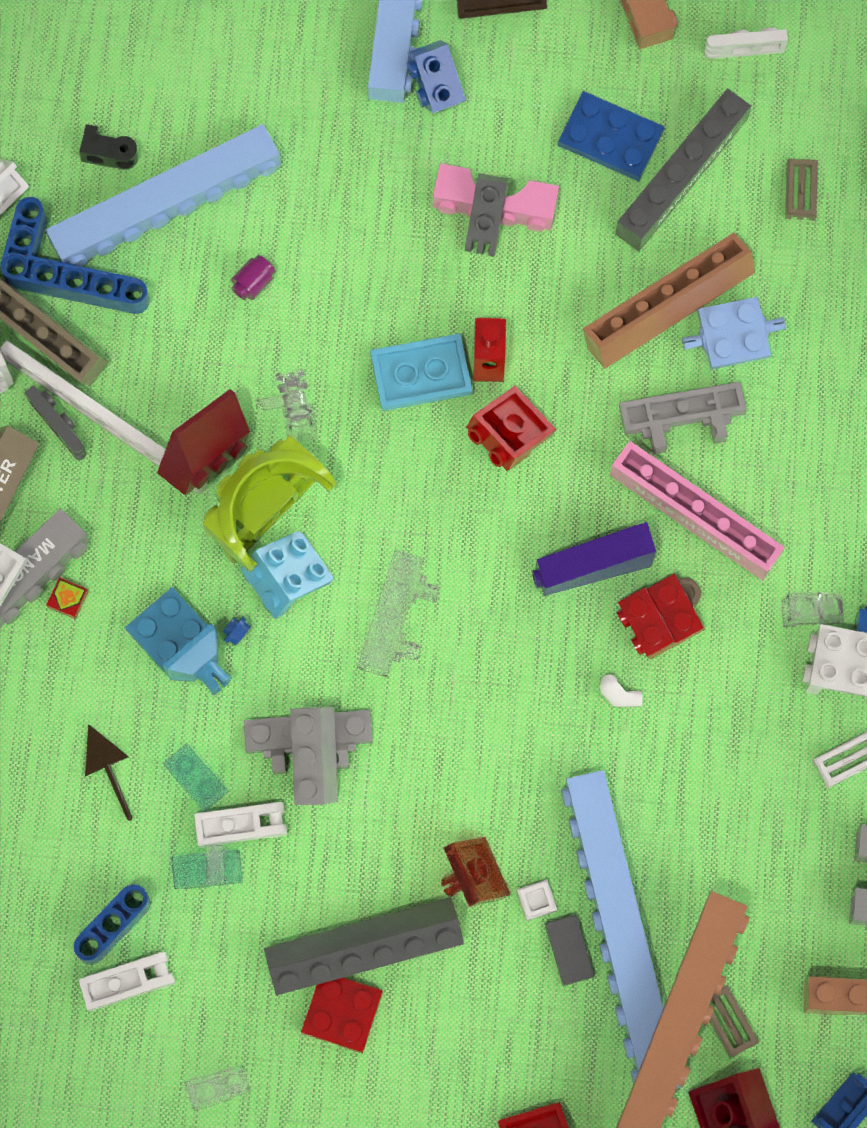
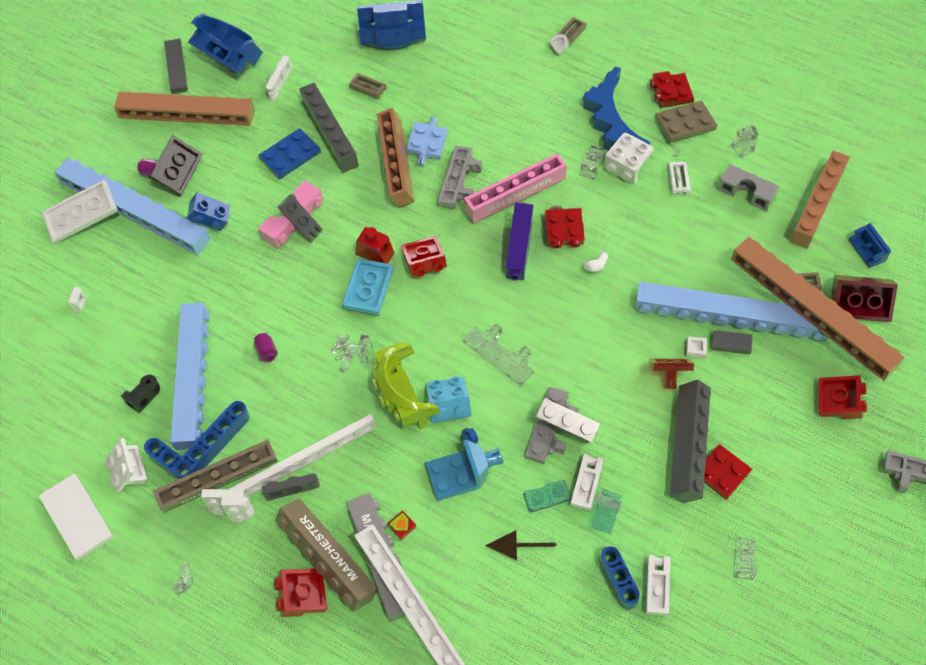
camera: 60 degrees left, 15 degrees down
(205, 444) = (355, 403): dark red slope -> none

